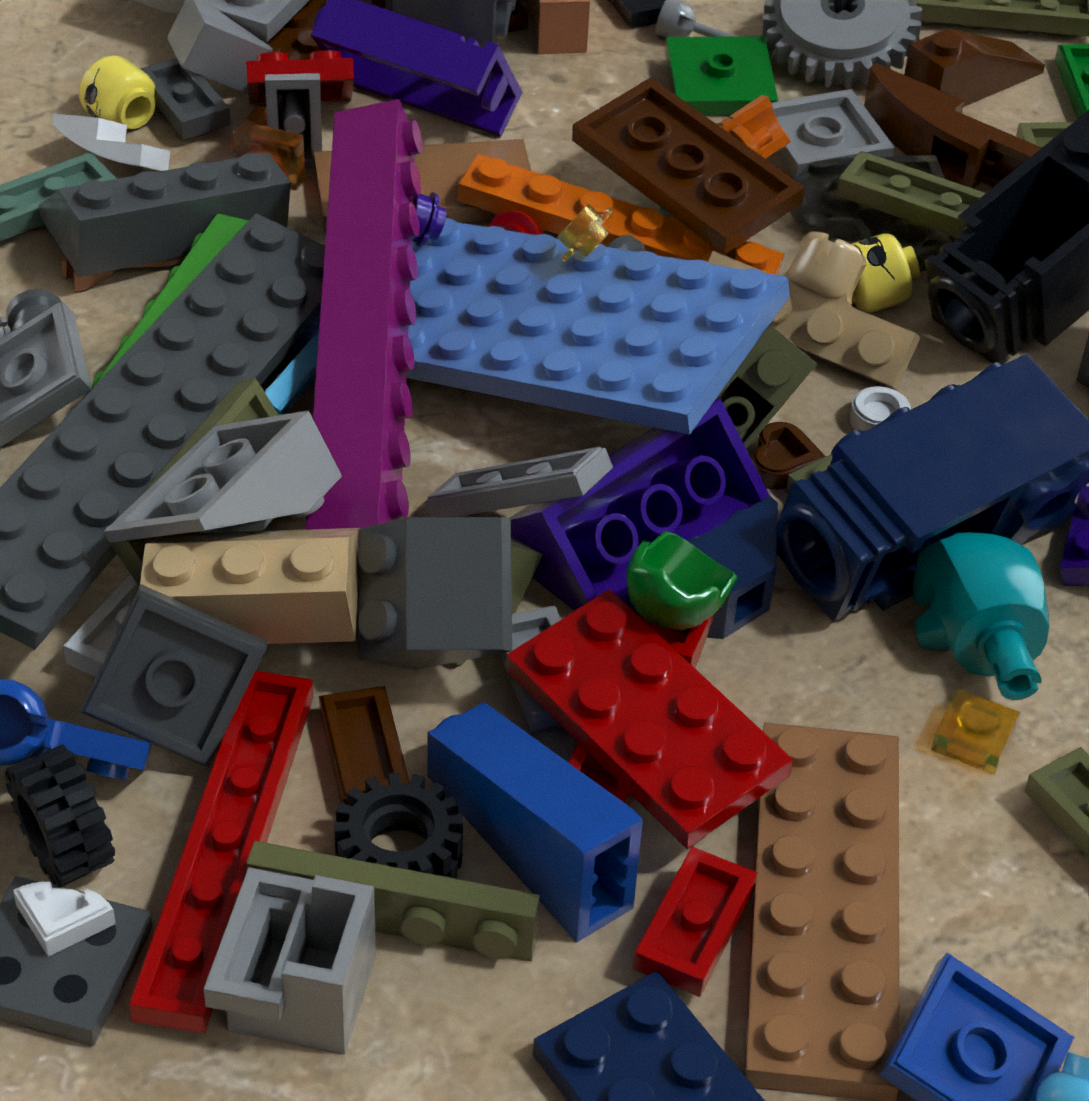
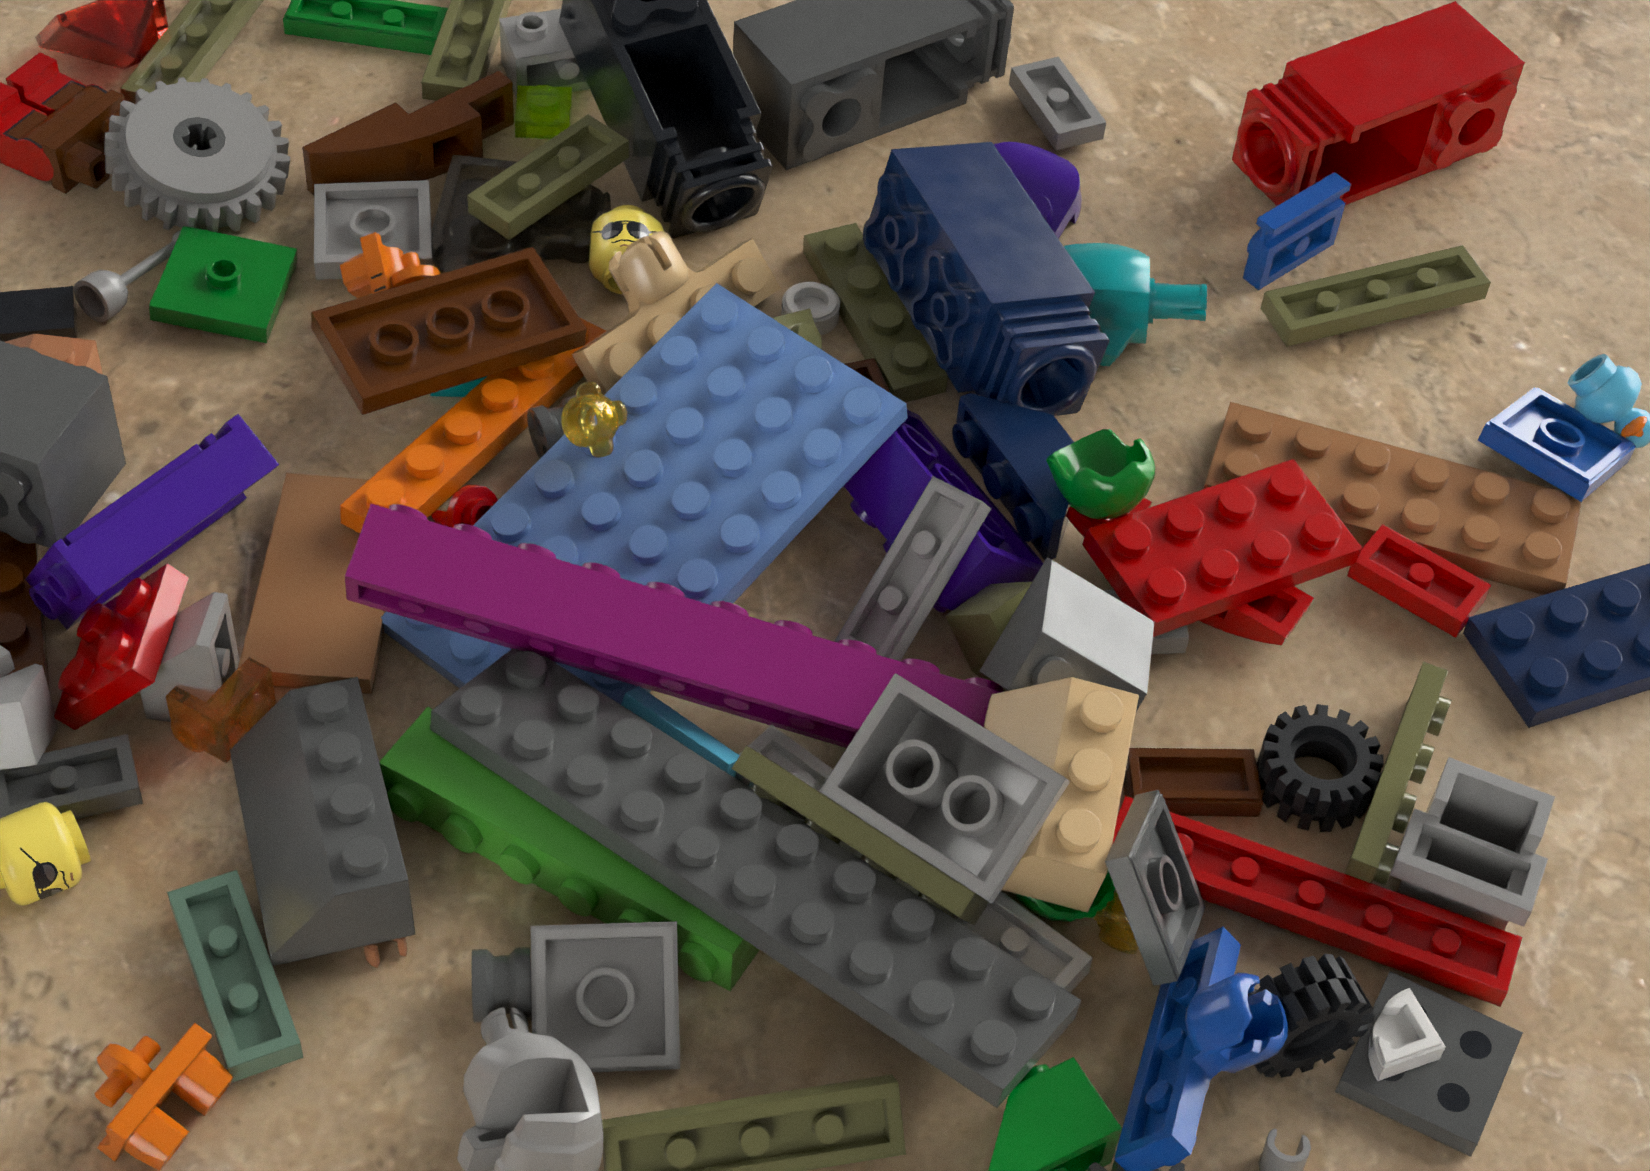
camera: 80 degrees left, 5 degrees up
(108, 141) = (131, 881): white slope -> none
(540, 817) = (1320, 650): blue slope -> none
(969, 64) = (302, 92): reddish brown slope -> none
(975, 731) = (1218, 356): clear yellow plate -> none

